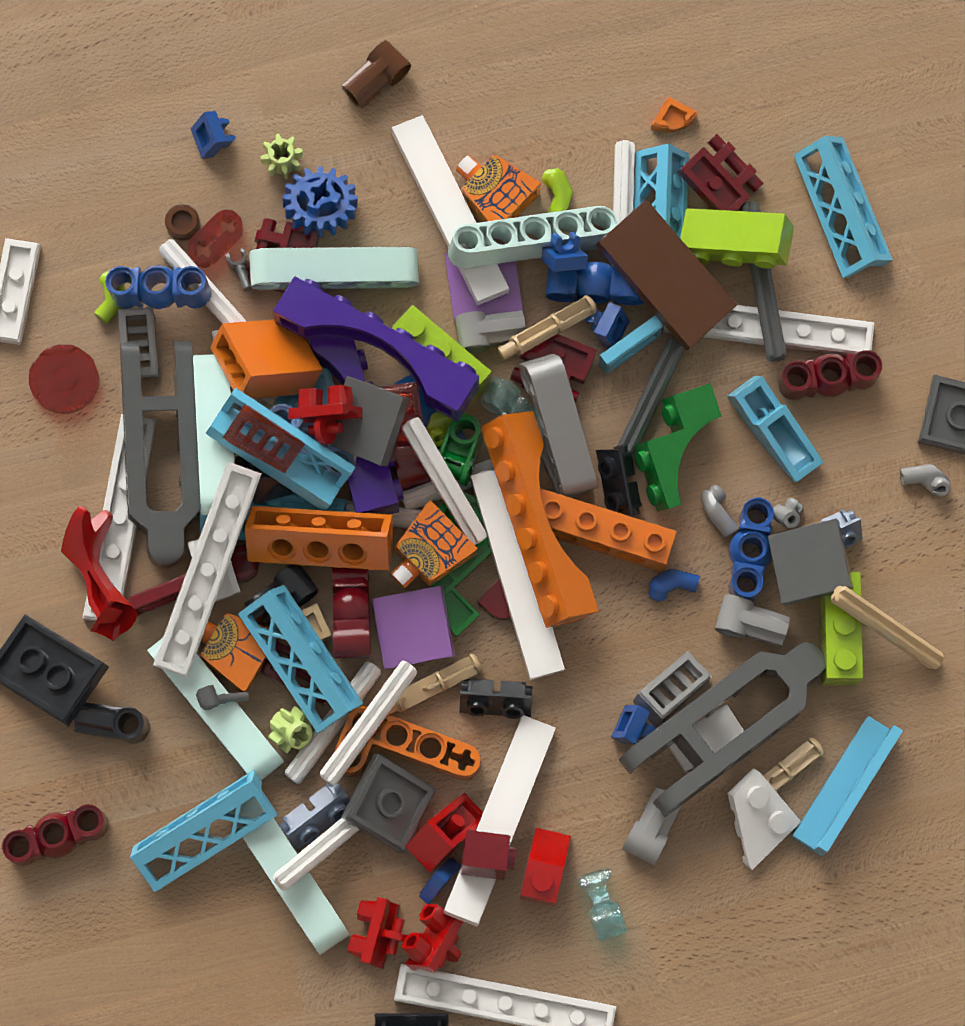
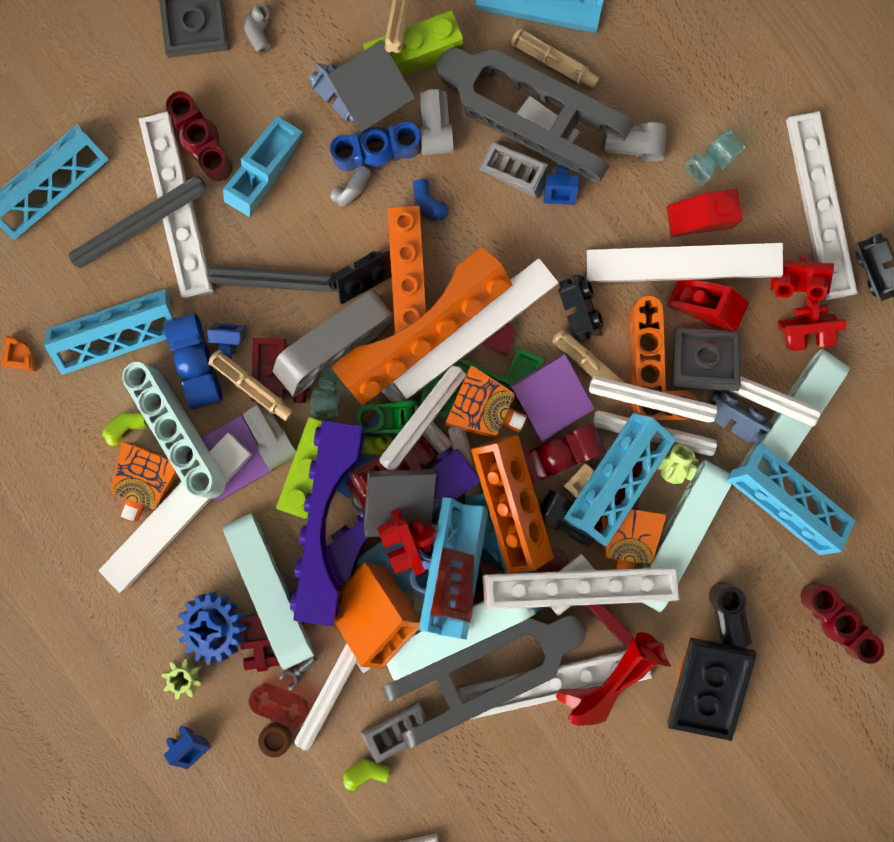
camera: 105 degrees left, 10 degrees up
(64, 379) = (453, 783): clear red tile -> none
(143, 282) = (346, 752): blue piece -> none
(209, 699) = (686, 540): dark grey hand -> none
(382, 68) = (68, 623): reddish brown piece -> none
(439, 880) = (752, 293): blue tile -> none
(487, 855) = (726, 255): dark red brick -> none
(564, 257) = (181, 392): blue tile -> none
(623, 179) = (112, 367): white axle -> none
(630, 345) = (236, 311): medium azure tile -> none
(662, 456) = (323, 247): green arch -> none
(666, 274) = (164, 301): reddish brown tile -> none
(712, 180) = (65, 295): dark red plate -> none
(738, 237) = (107, 254): lime brick -> none
(760, 817) = (595, 58): white wing -> none
(789, 513) = (334, 127): light grey arm -> none

